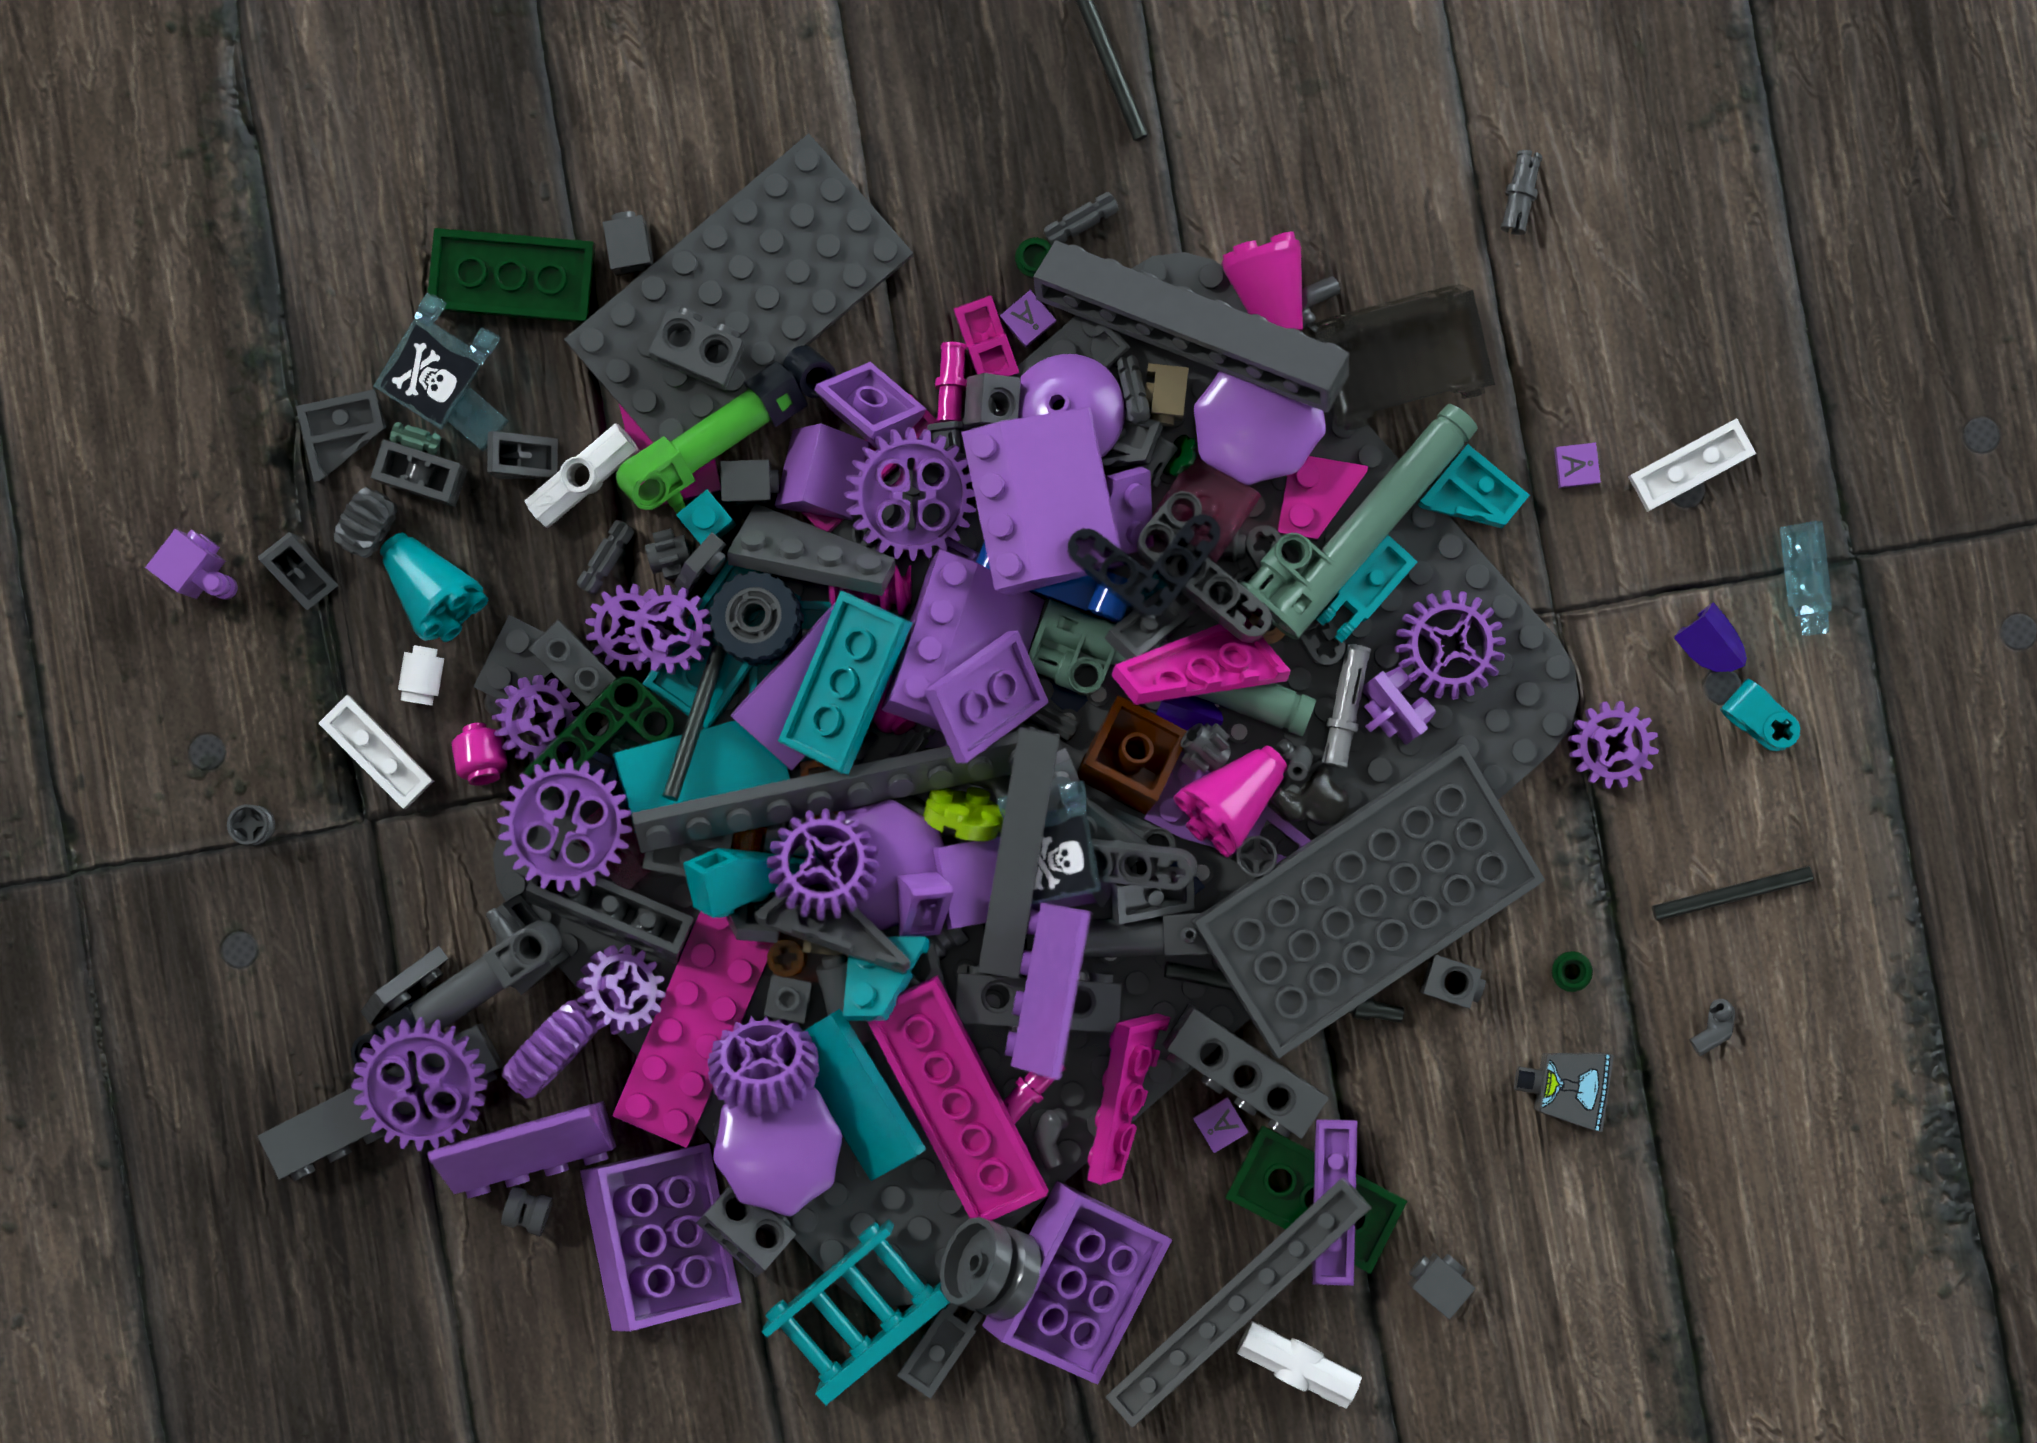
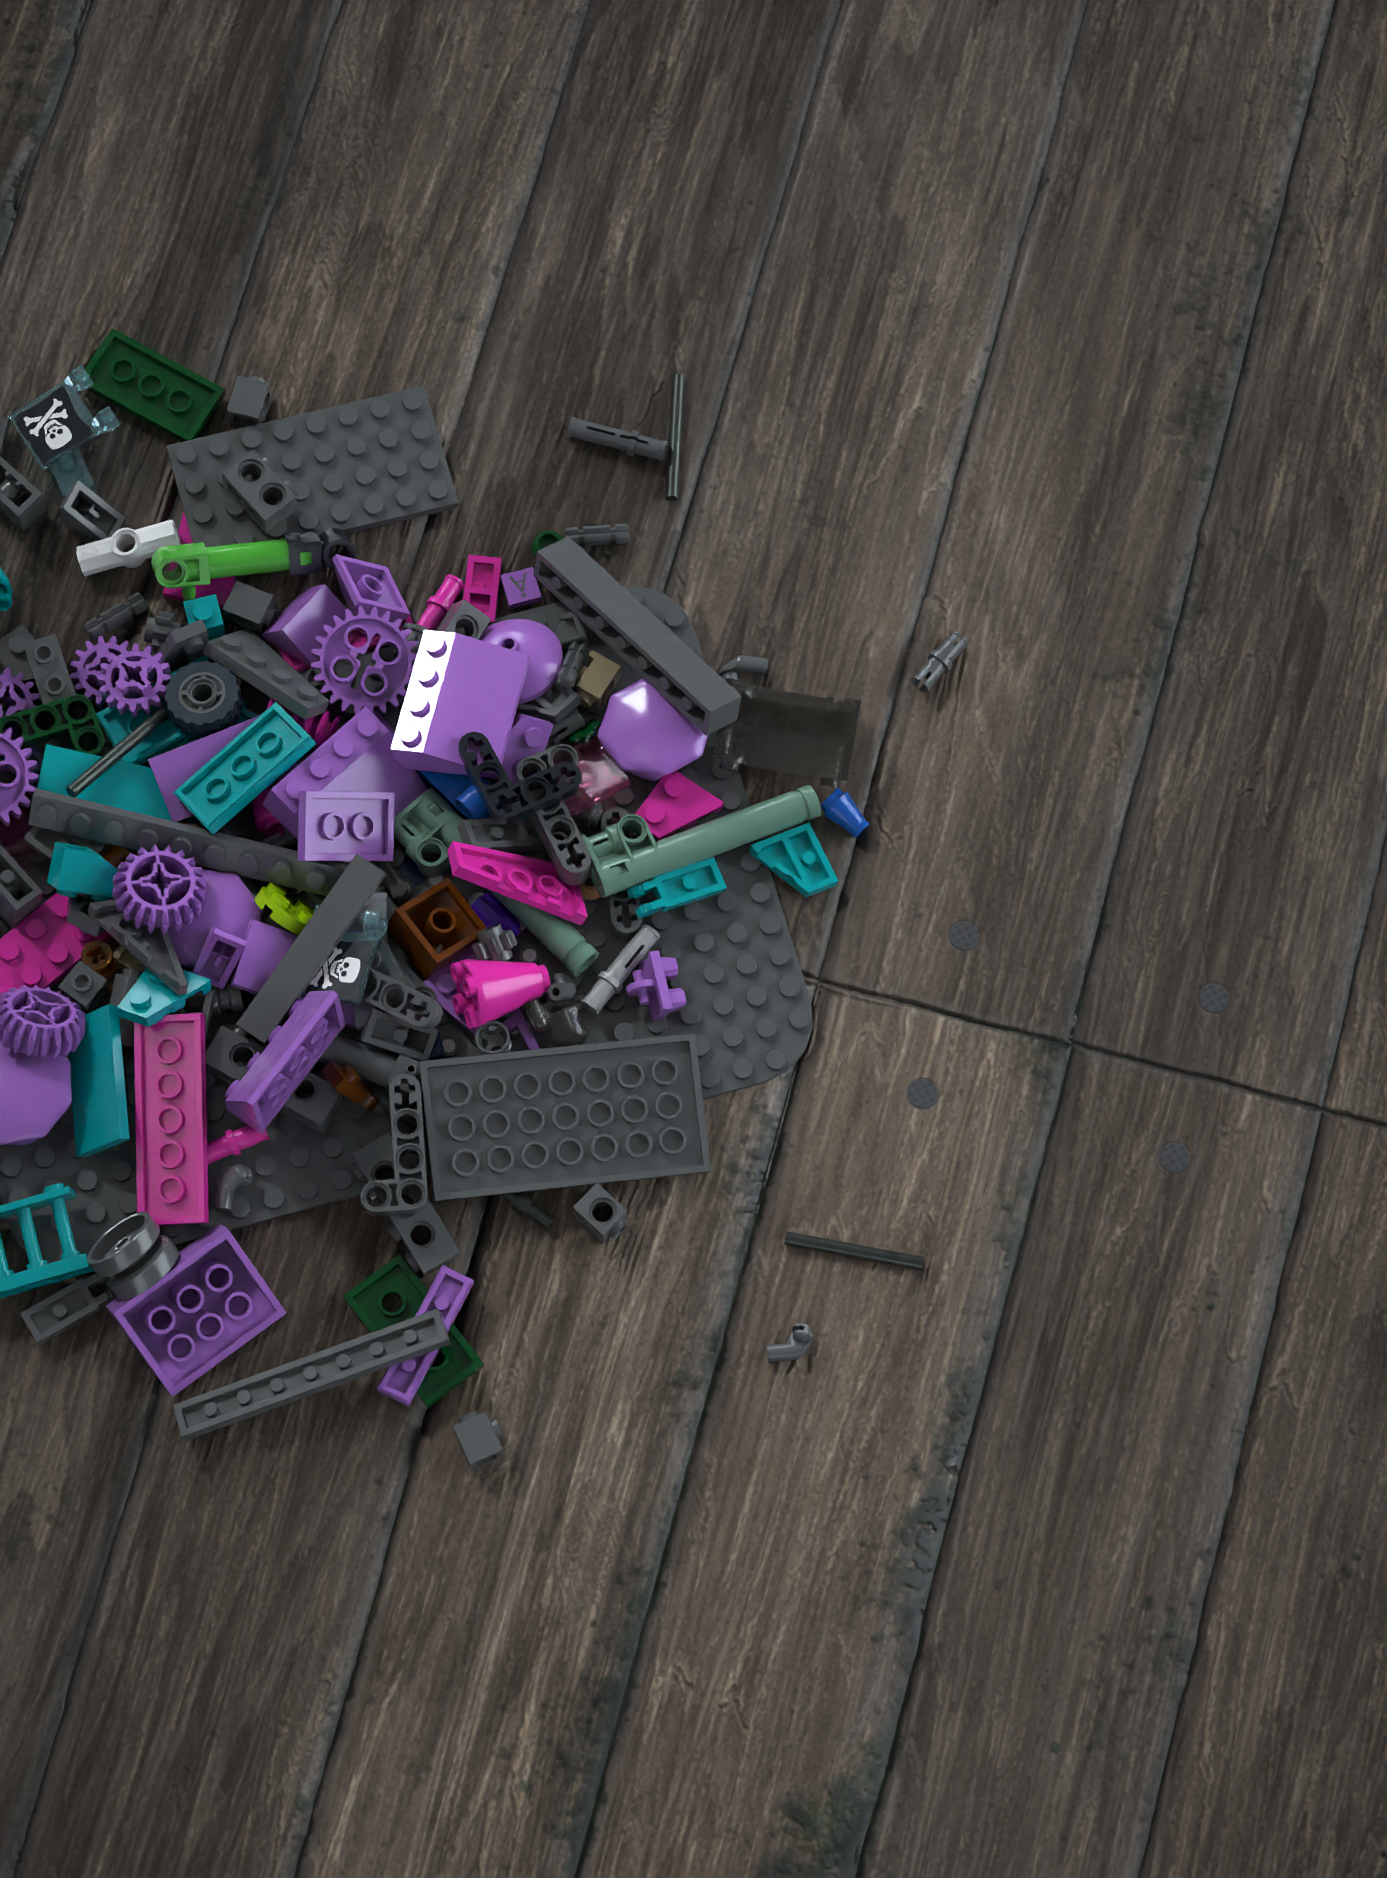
camera: 15 degrees right, 15 degrees down
(415, 438) = (22, 467): sand green piece -> none
(1051, 97) = (618, 439): none -> dark grey pin
(1123, 1094) = (301, 1177): dark pink wing -> none
(1126, 975) = (347, 1083): none -> reddish brown plate
(1219, 1020) = (402, 1144): none -> dark grey beam
(1220, 1125) = (367, 1242): medium lavender tile -> none
(1268, 279) = (715, 629): dark pink cone -> none
(1299, 1364) = (336, 1451): white piece -> none
(1466, 655) = (700, 976): medium lavender gear -> none
(1499, 414) = (844, 812): none -> blue cone
(1570, 1086) = (654, 1335): dark grey torso -> none
(1577, 465) = (887, 878): medium lavender tile -> none
(1584, 975) = (704, 1242): dark green plate -> none
(1629, 754) = (805, 1082): medium lavender gear -> none
(1692, 465) = (975, 916): white plate -> none
(1713, 641) = (928, 1051): dark purple brick -> none
(1755, 711) = (937, 1121): teal piece -> none
(1807, 575) = (1025, 1037): clear light blue hinge -> none

